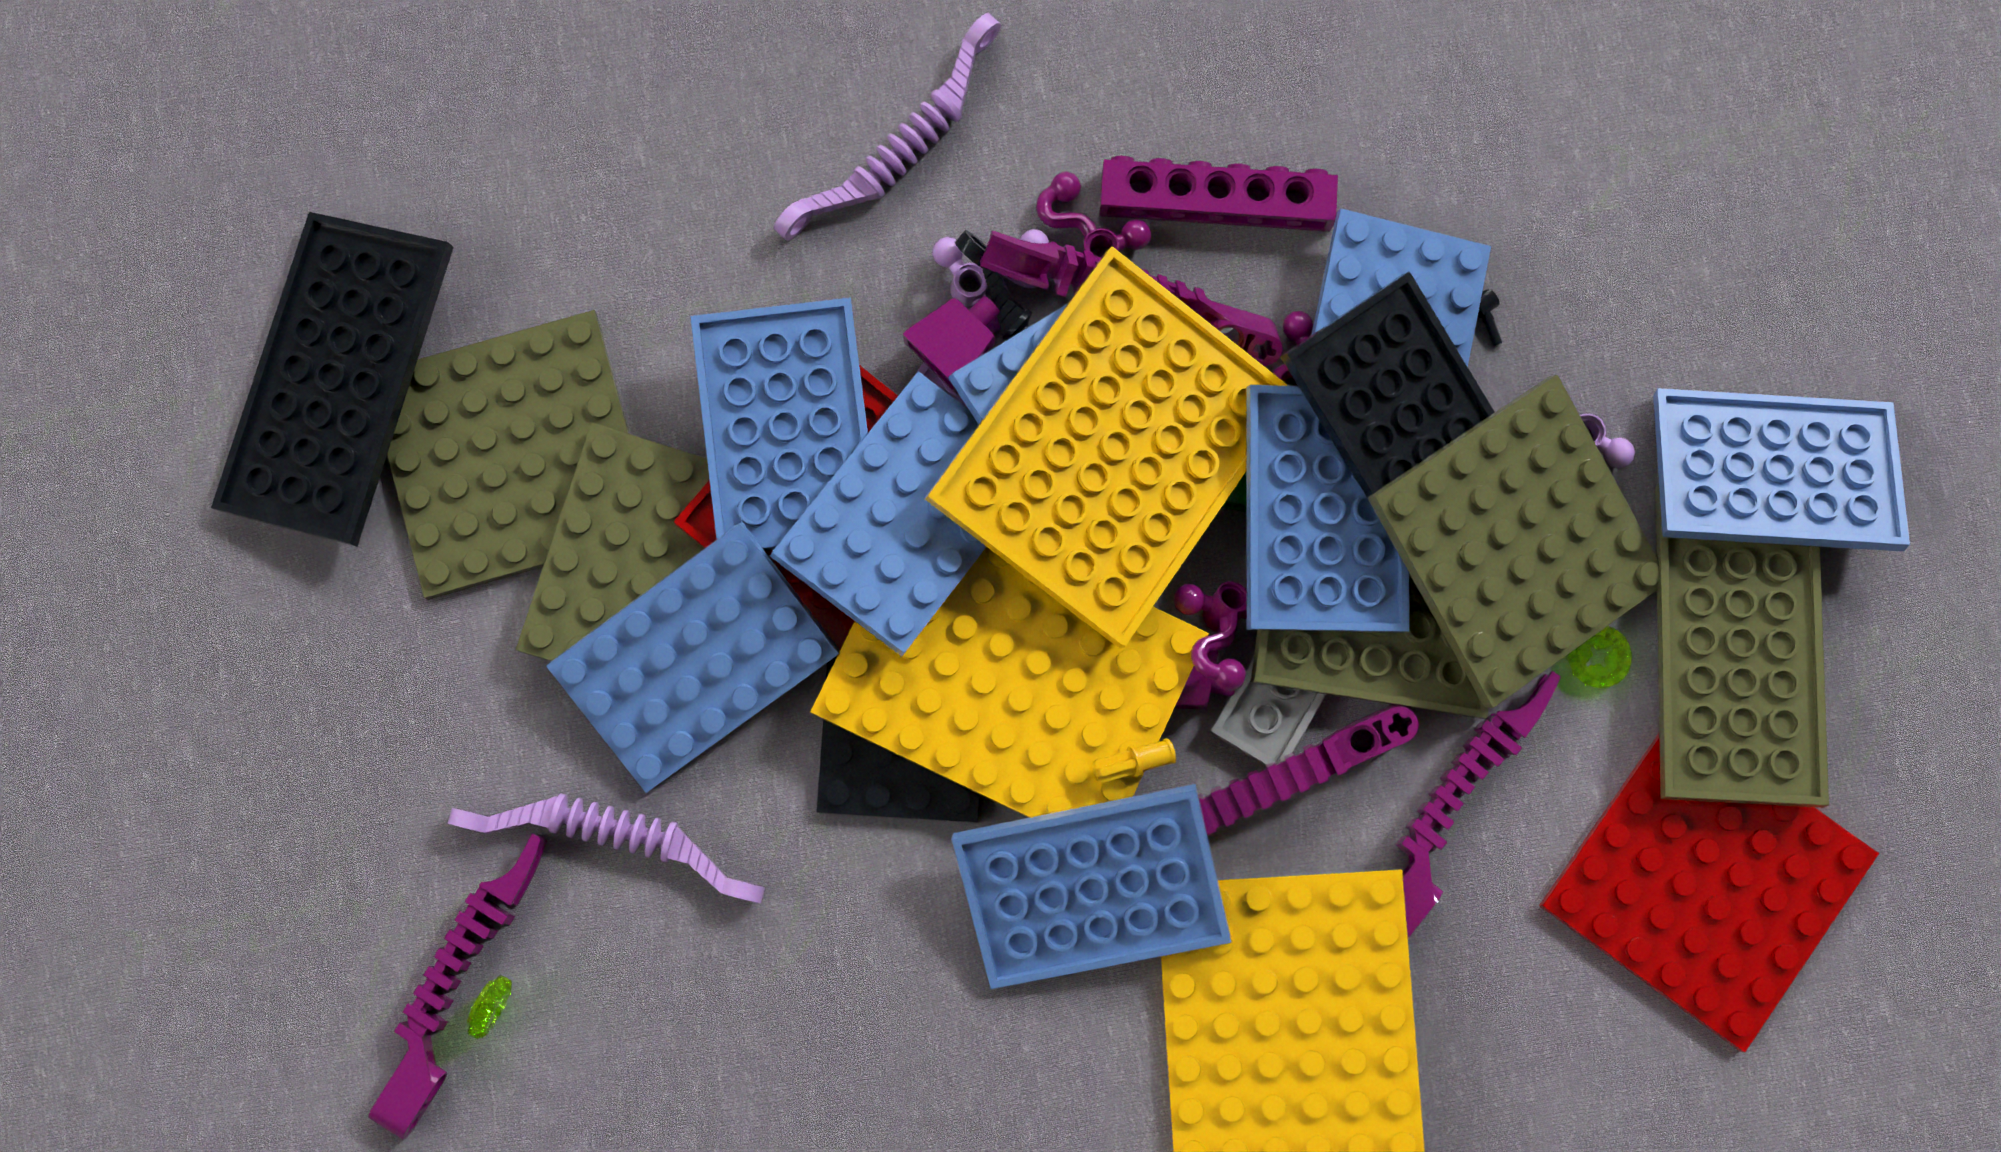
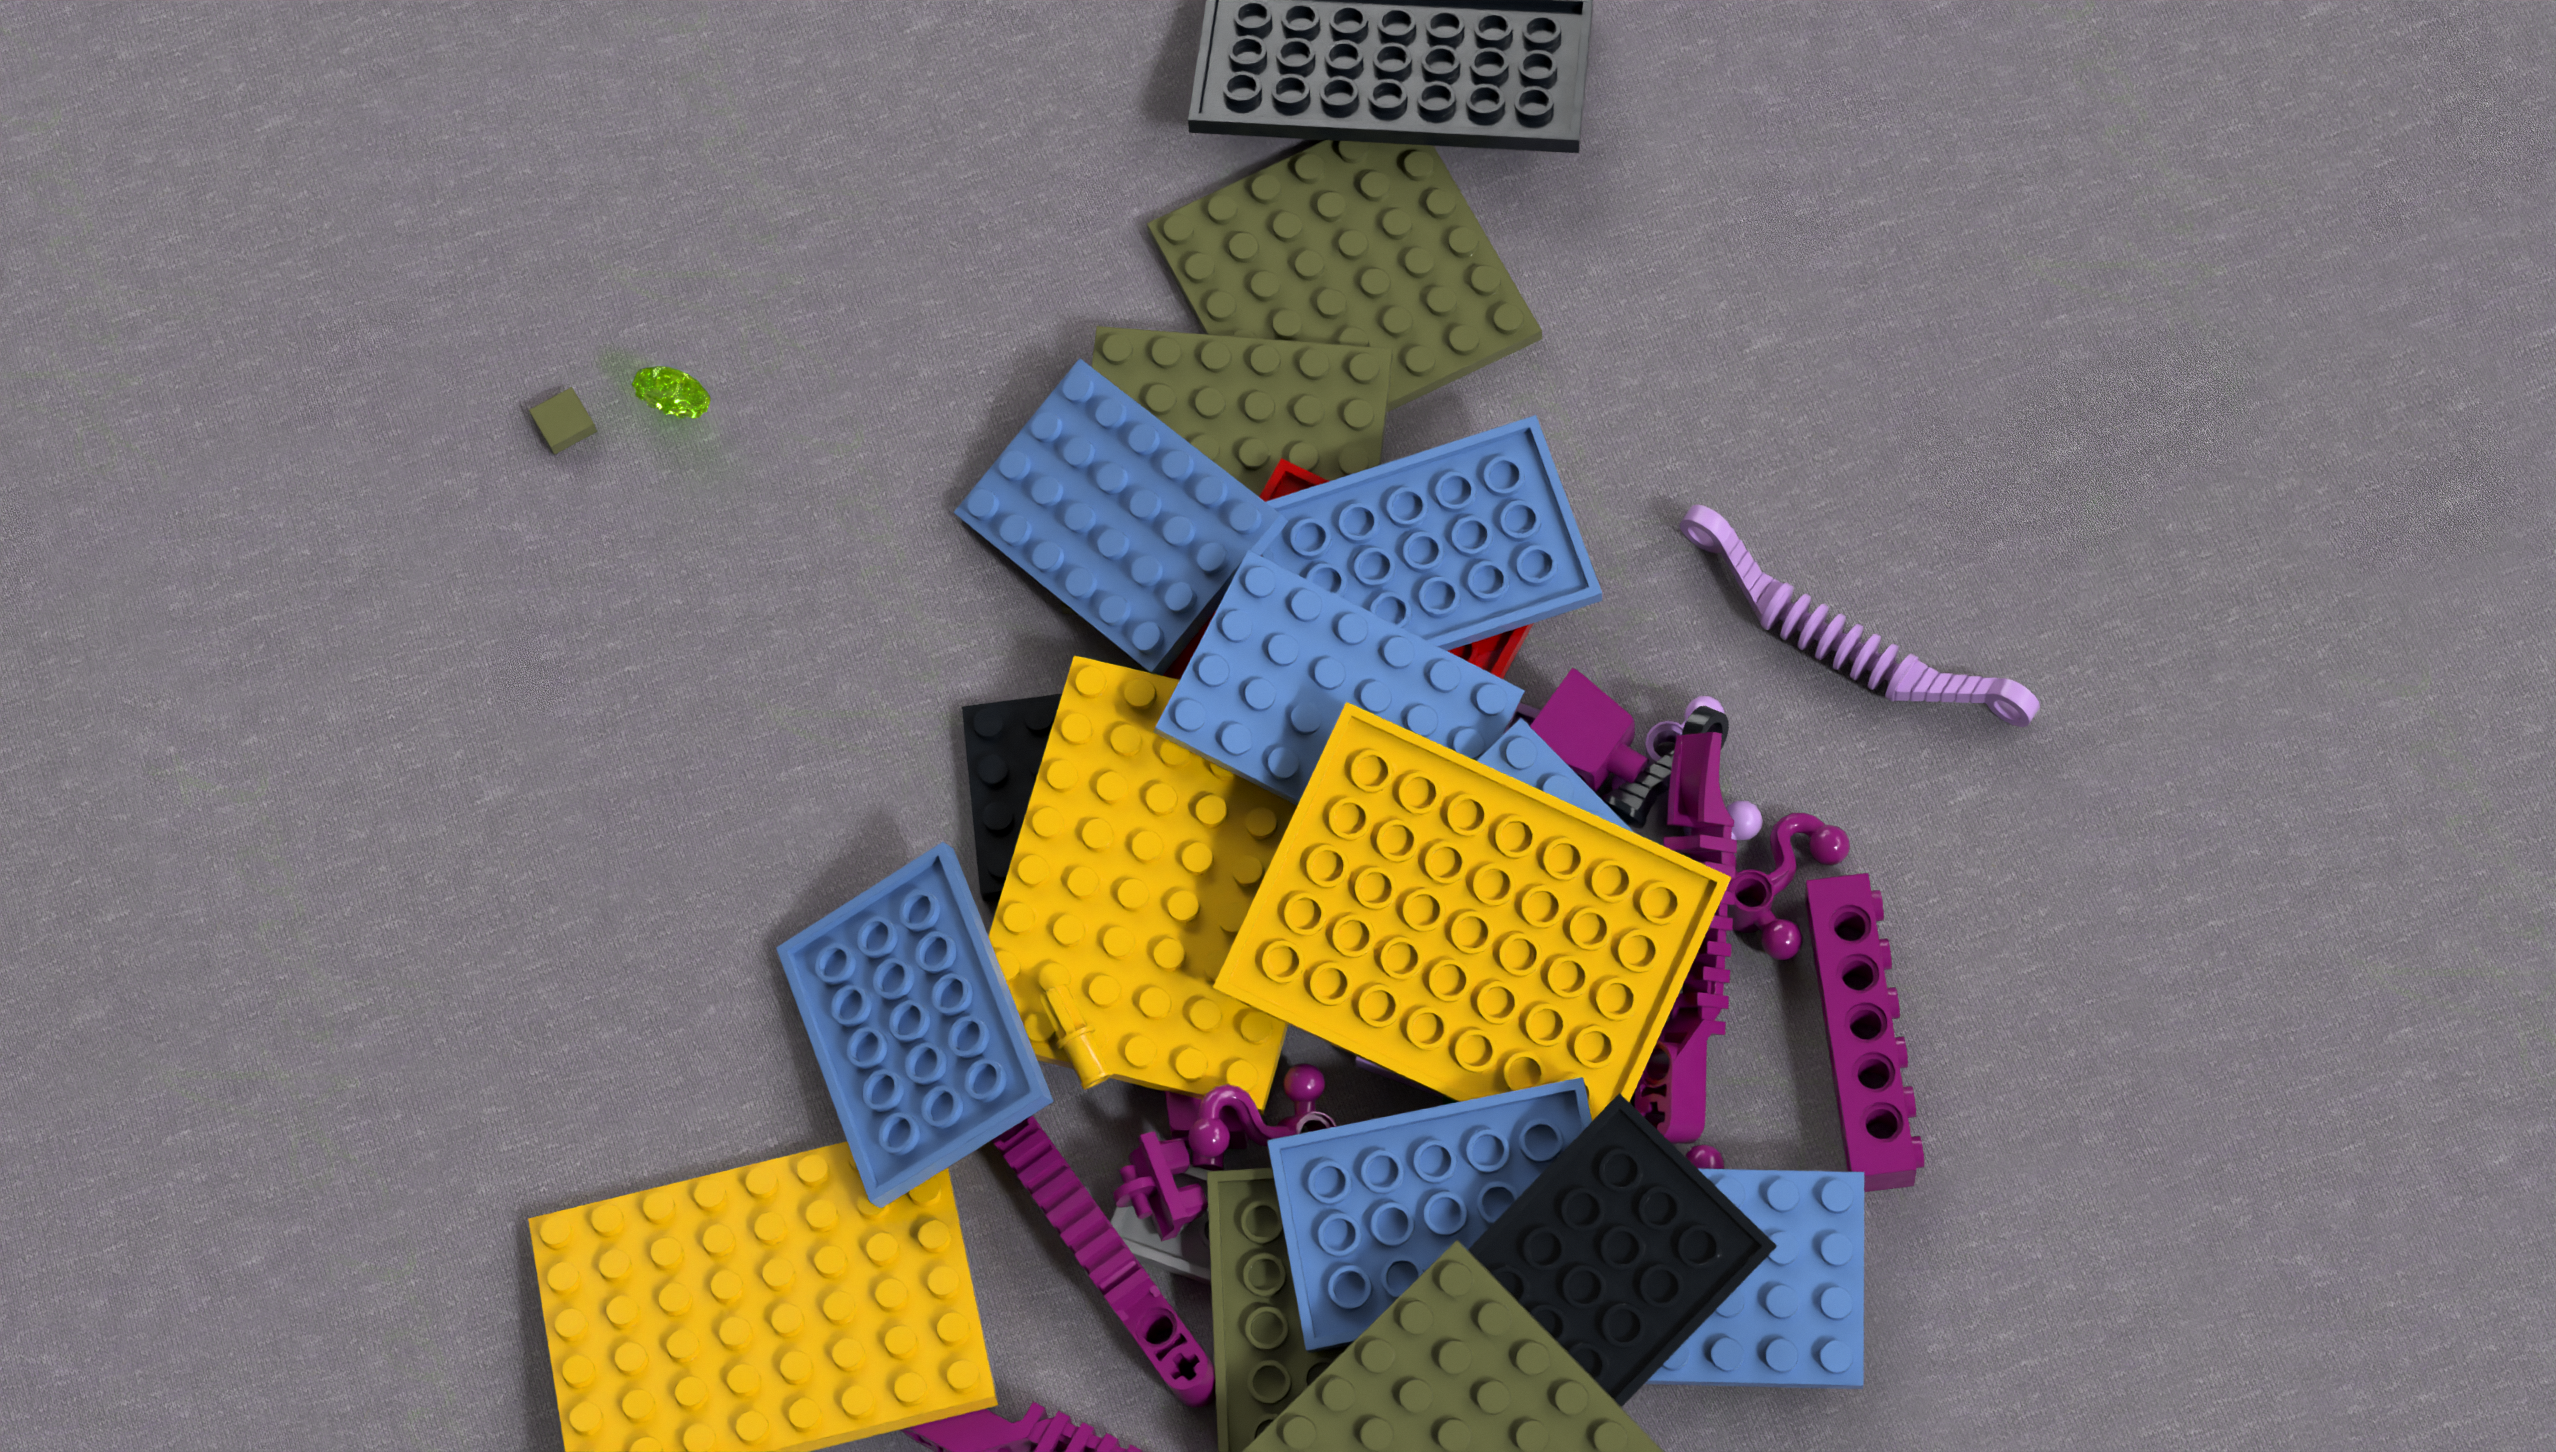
camera: 90 degrees right, 15 degrees down
(417, 1075) = (582, 338): magenta piece -> none
(486, 1103) = (562, 420): none -> olive tile
(555, 812) = (902, 493): lavender piece -> none
(1256, 724) = (1152, 1189): none -> magenta hips
(1489, 302) = (1788, 1403): black hand -> none

